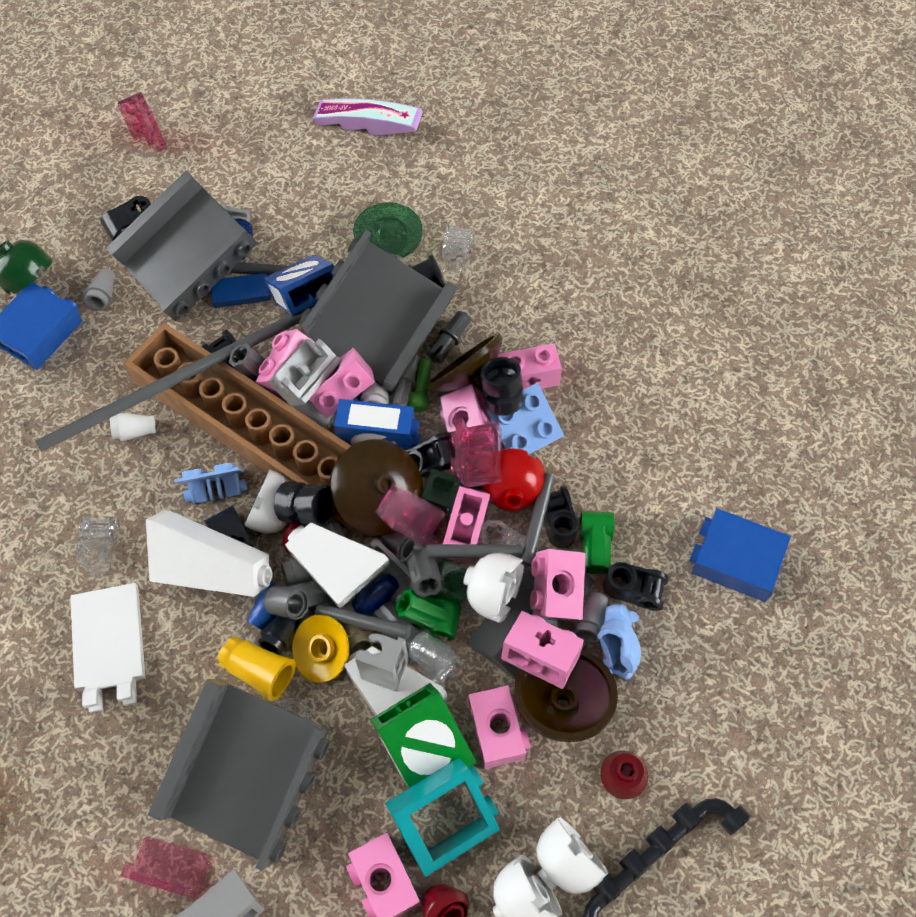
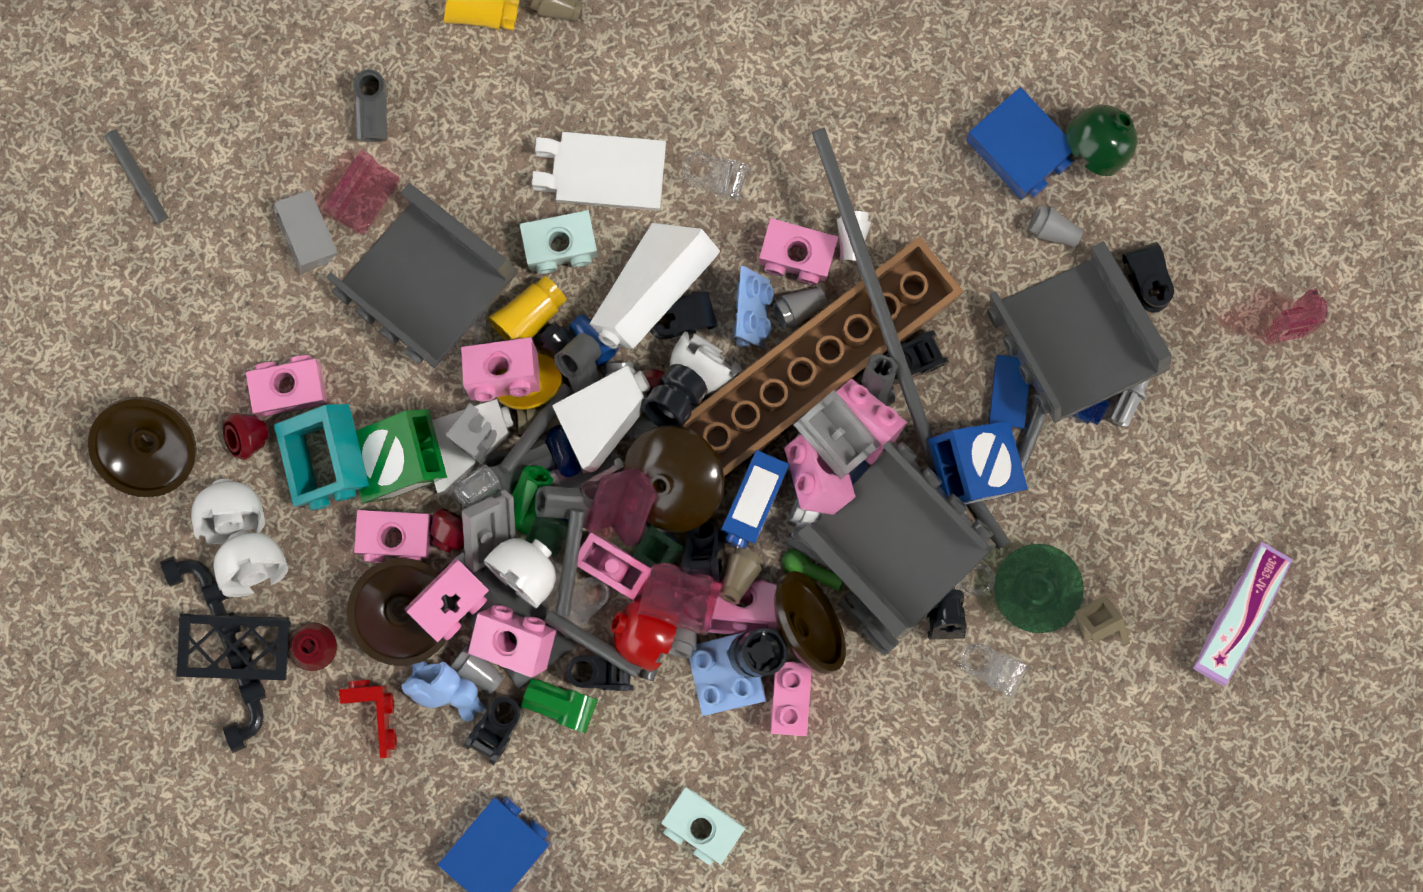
camera: 105 degrees right, 20 degrees up
(76, 885) = (372, 109): none -> dark grey piece
(148, 446) = (784, 236): none -> bright pink brick
(169, 645) = (540, 233): none -> light aqua brick
(203, 450) = (799, 306): none -> light grey cone
(300, 655) = (484, 360): none -> bright pink brick
(400, 185) = (1101, 620): none -> dark tan panel
(439, 420) = (739, 574): none -> dark tan cone
(466, 632) = (486, 527): none -> light grey plate
(476, 675) = (447, 530): none -> dark red cone
(636, 870) = (249, 672): none -> black window
(650, 710) = (362, 692): none -> red bracket
(655, 391) = (724, 828): none -> light aqua brick

